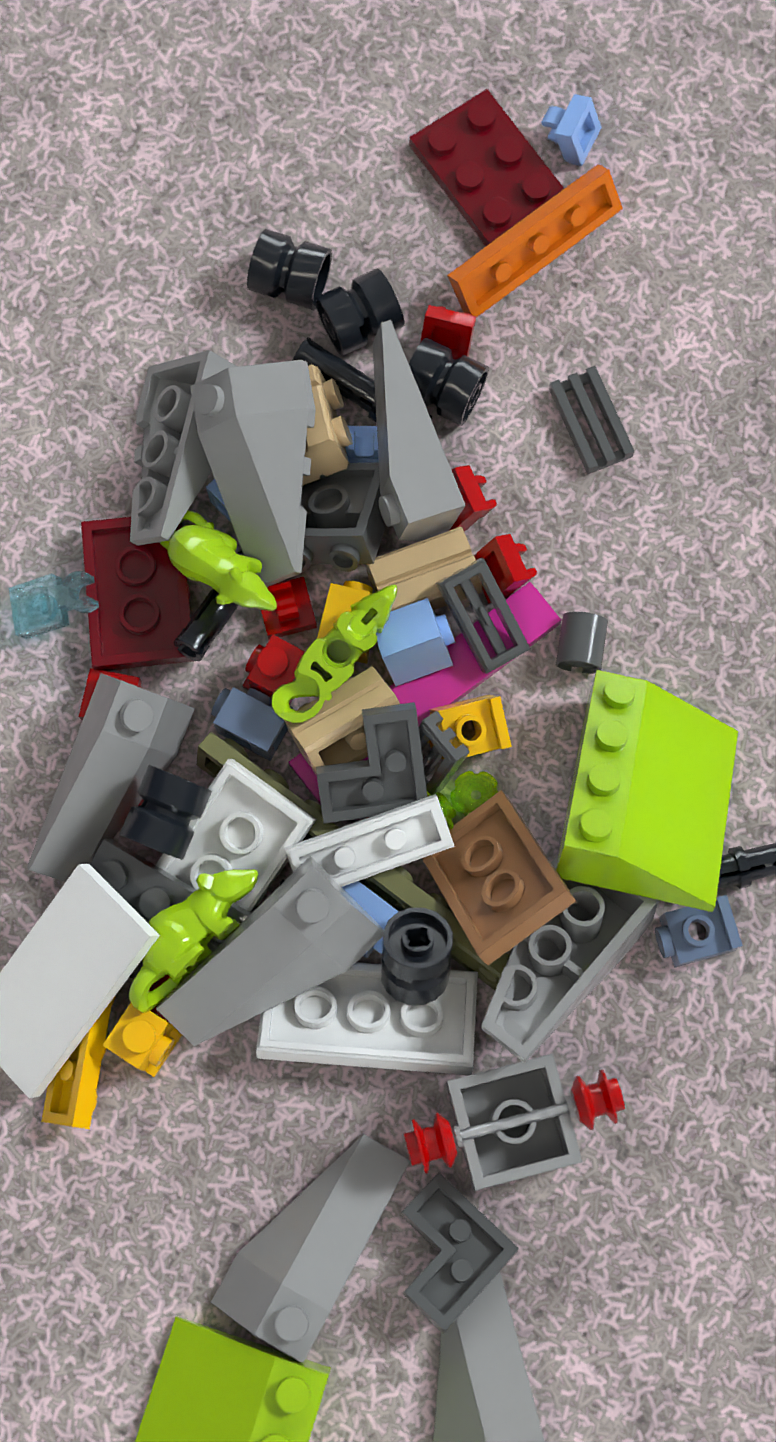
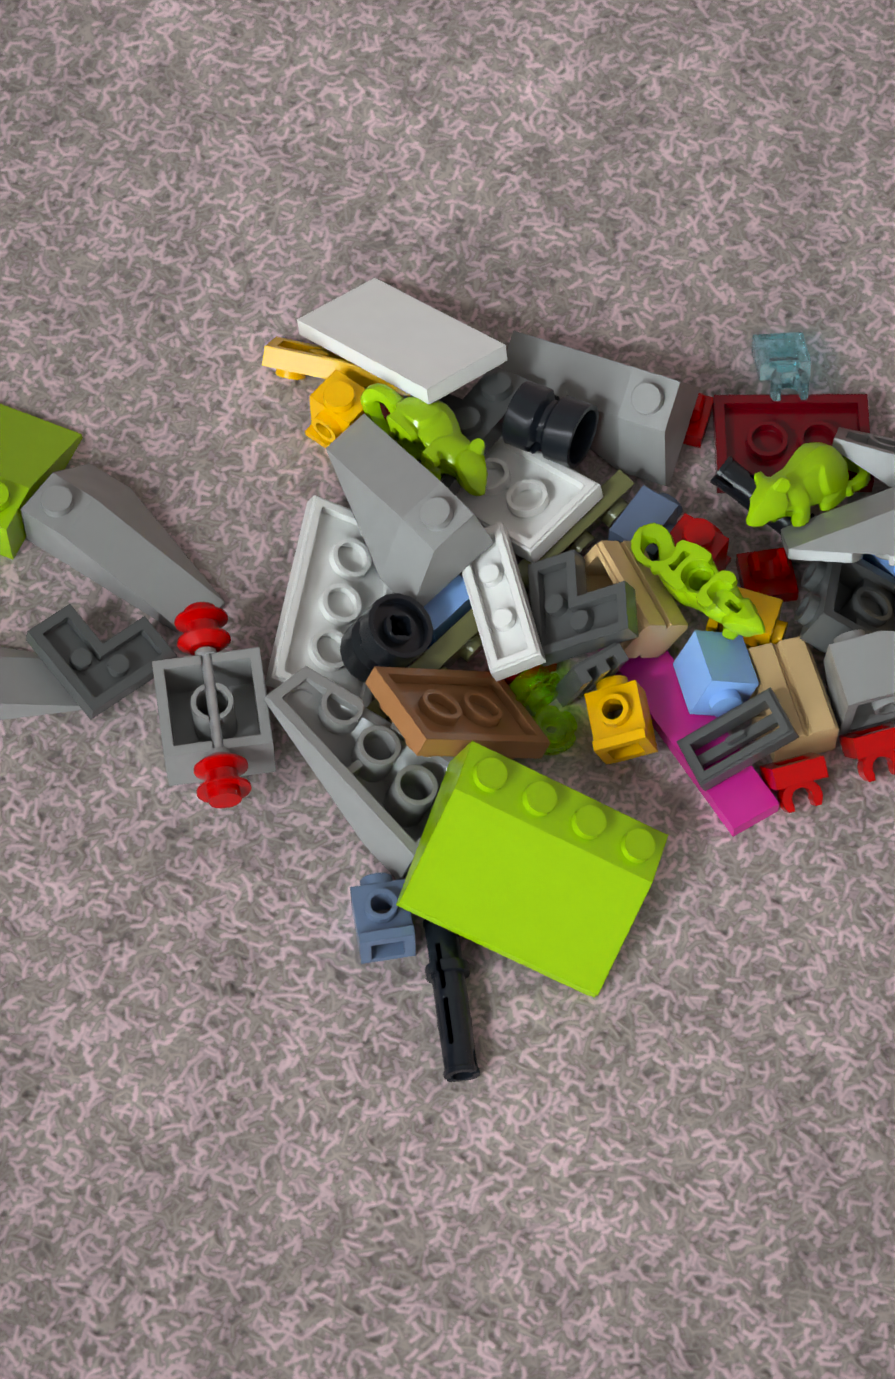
camera: 95 degrees right, 15 degrees down
(581, 642) = (706, 844): dark grey beam -> none

